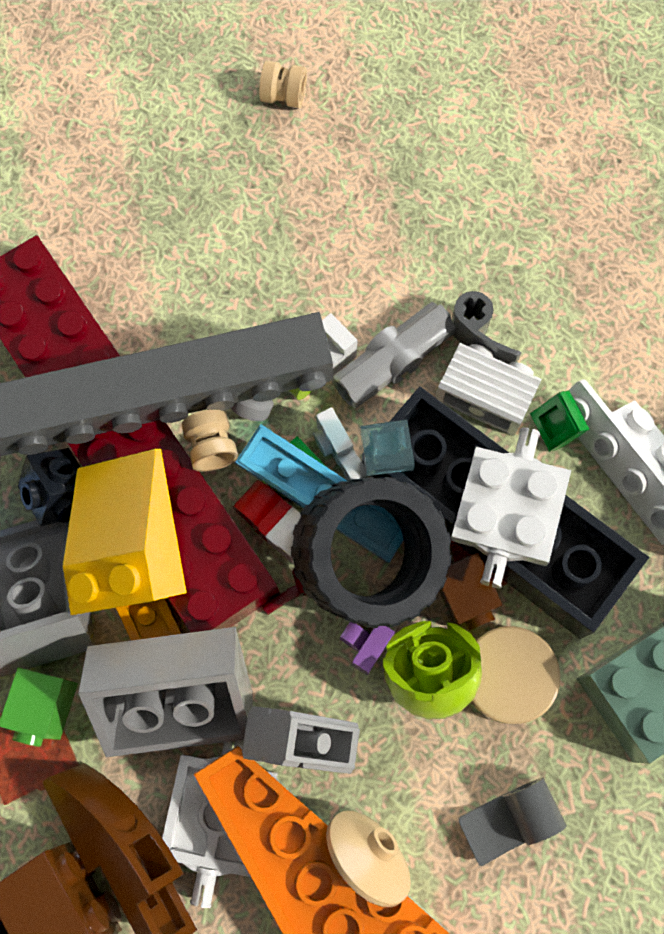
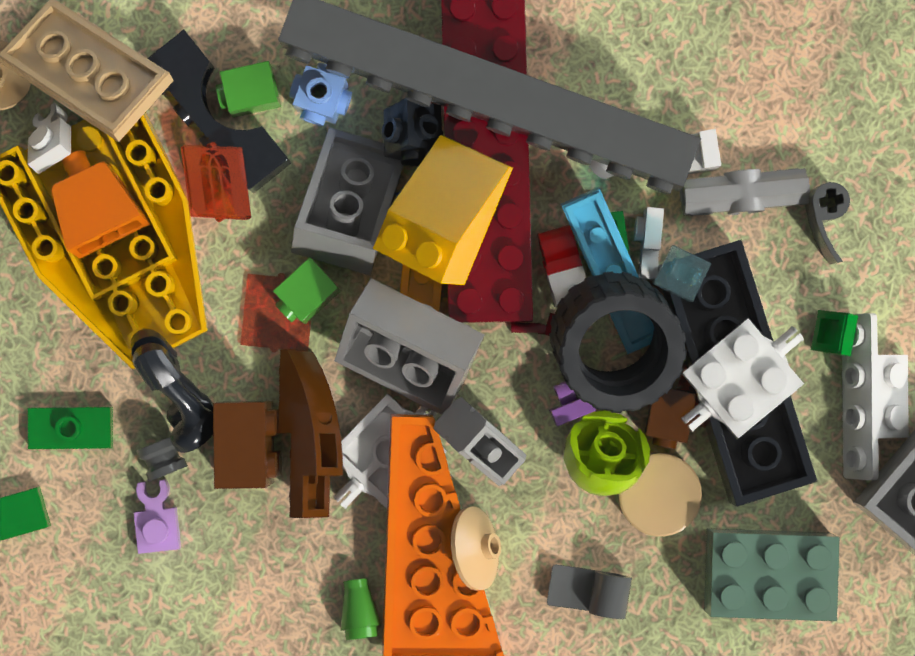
camera: 30 degrees right, 15 degrees up
(209, 440) = (552, 177): tan wheel -> none
(488, 388) = (798, 269): white brick -> none

